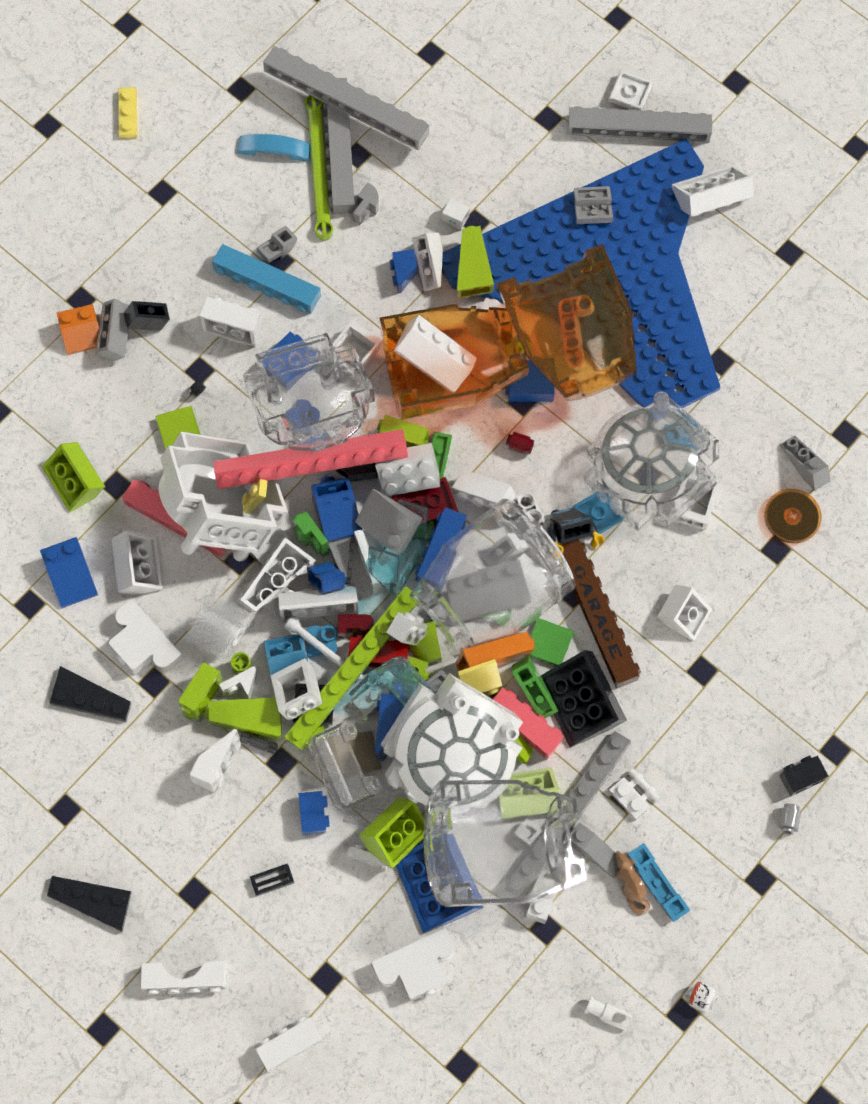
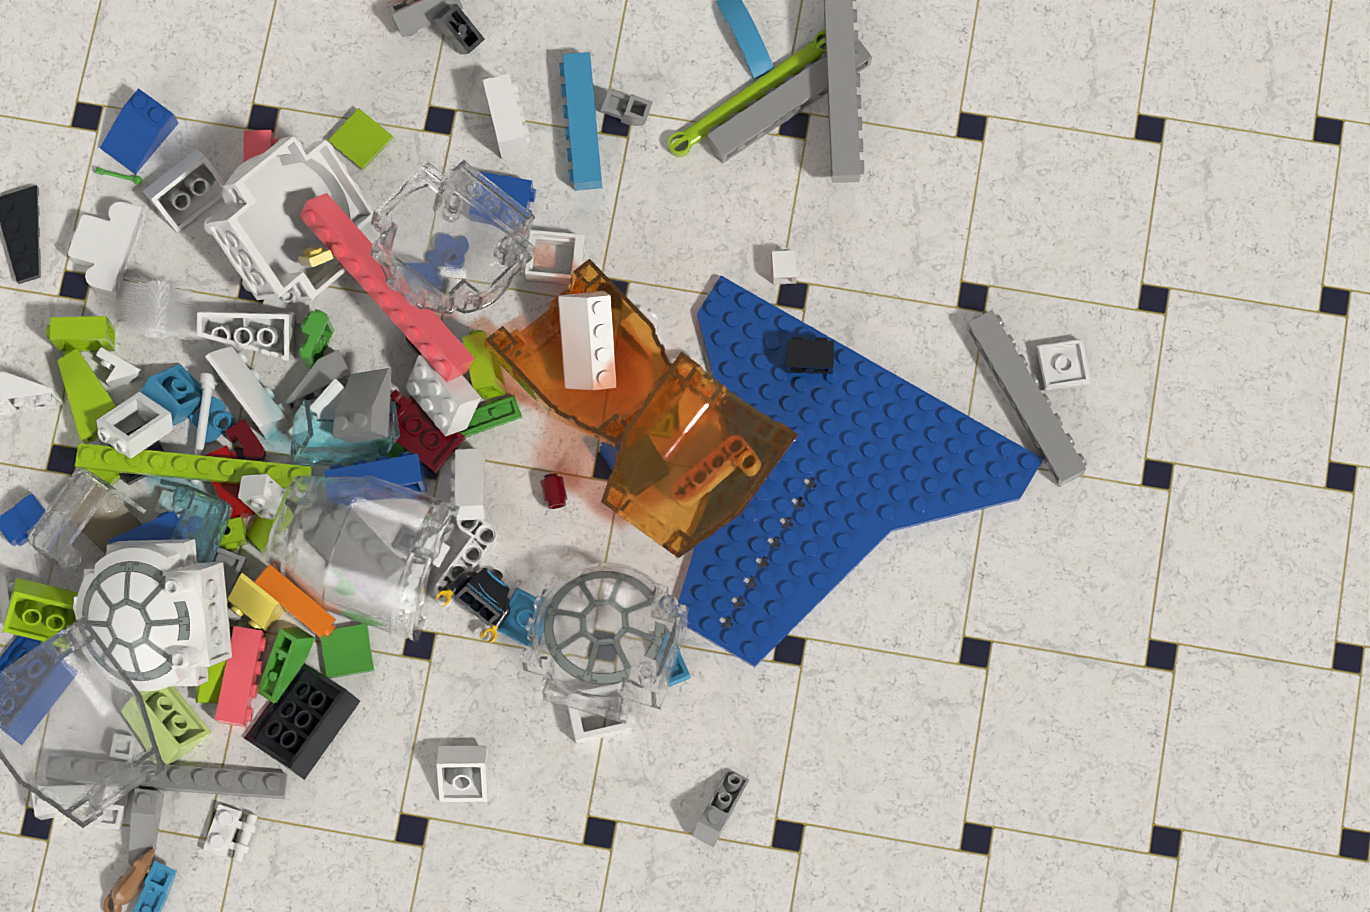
camera: 65 degrees right, 5 degrees up
(73, 475) = (244, 70): lime slope -> none
(103, 595) = (137, 179): none -> bright green hinge
(197, 388) = (414, 129): black plate -> none
(238, 661) = (135, 352): lime wheel -> none
(258, 742) = (68, 425): dark grey axle -> none
(326, 577) = (276, 383): blue brick -> none
(335, 507) = (359, 346): blue slope -> none
(368, 203) = (742, 169): light grey brick -> none
(404, 268) = (683, 253): blue slope -> none
(429, 259) = (714, 268): white slope -> none
(474, 267) = (729, 319): lime slope -> none
(531, 230) = (810, 356): none -> black brick
(593, 205) = (886, 404): light grey slope -> none
(600, 617) = (407, 682): reddish brown brick -> none
(713, 190) = (991, 523): white slope -> none
(799, 503) = (649, 848): clear orange piece -> none

